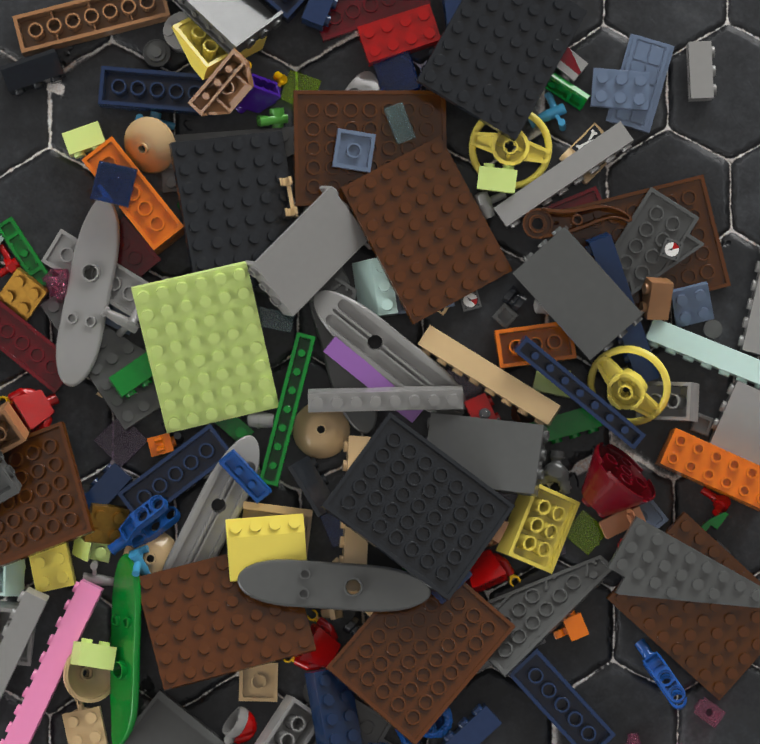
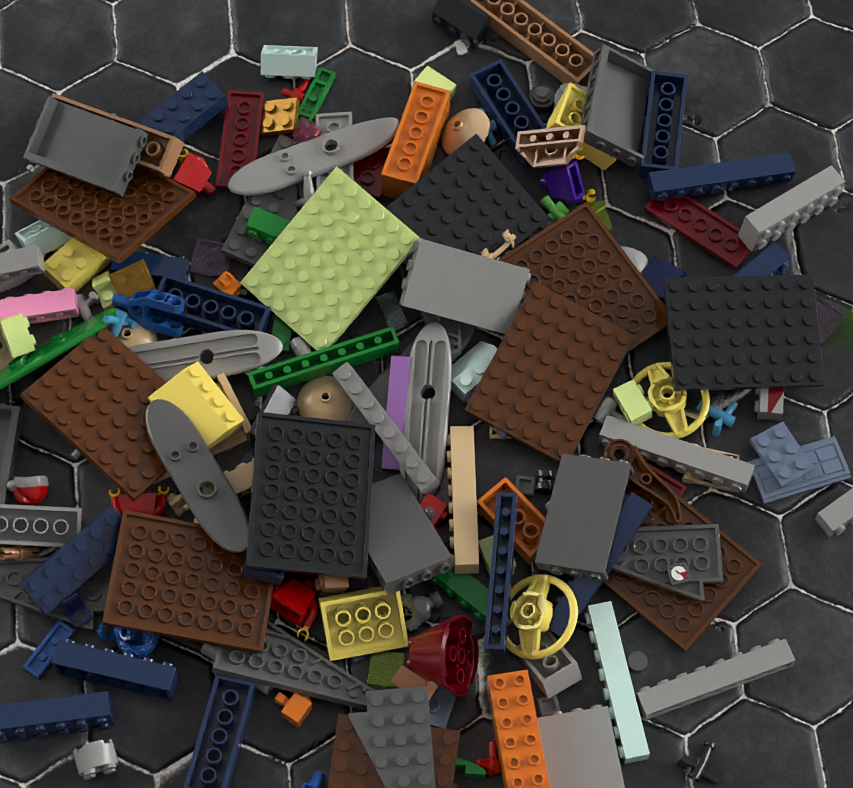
camera: 60 degrees right, 20 degrees down
(114, 184) = (412, 113): clear blue tile -> none
(245, 476) = (244, 357): blue tile -> none
(259, 683) = (78, 482): tan plate -> none
(353, 150) = (572, 275): sand blue plate -> none
(399, 33) = (691, 254): red brick -> none
(399, 123) = (621, 299): clear light blue tile -> none
(471, 301) = (517, 451): tile -> none
(567, 91) = (747, 412): green plate -> none
(656, 298) = (627, 590): medium nougat brick -> none
(692, 304) = (645, 628): sand blue plate -> none

